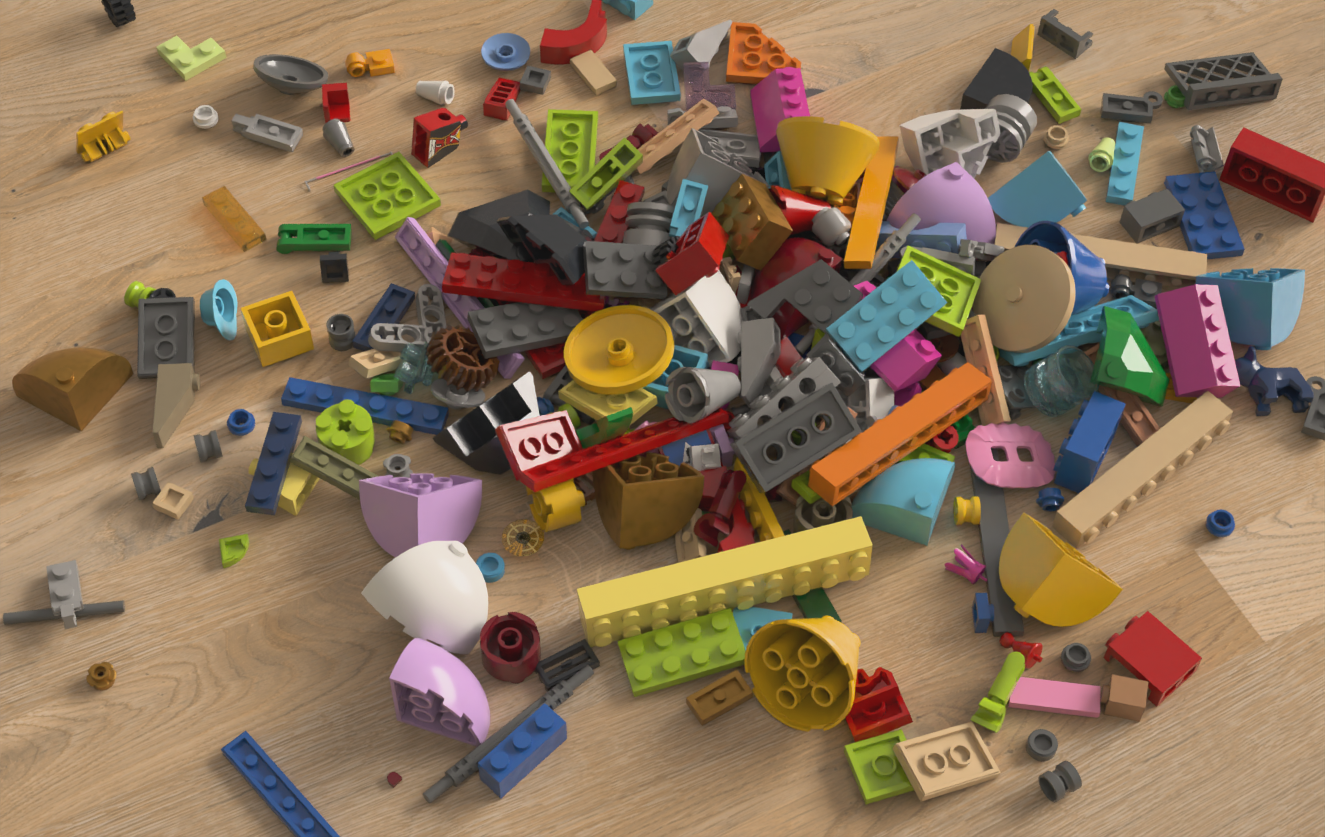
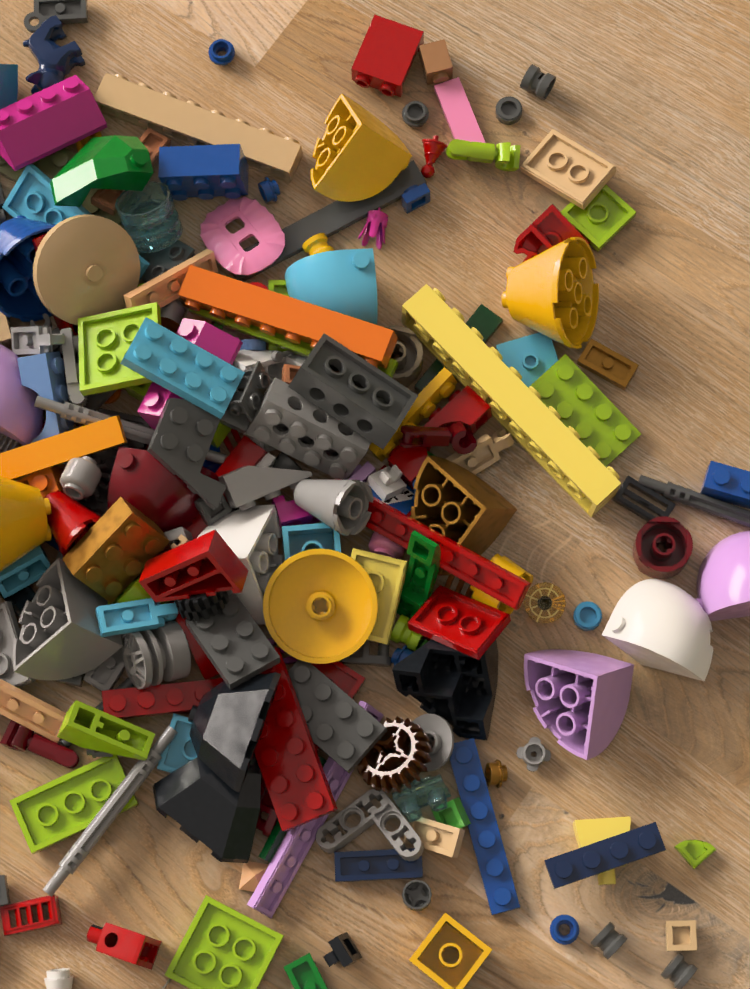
camera: 110 degrees left, 20 degrees up
(330, 466) = (575, 796): olive tile -> none
(346, 431) = (545, 811): lime brick -> none

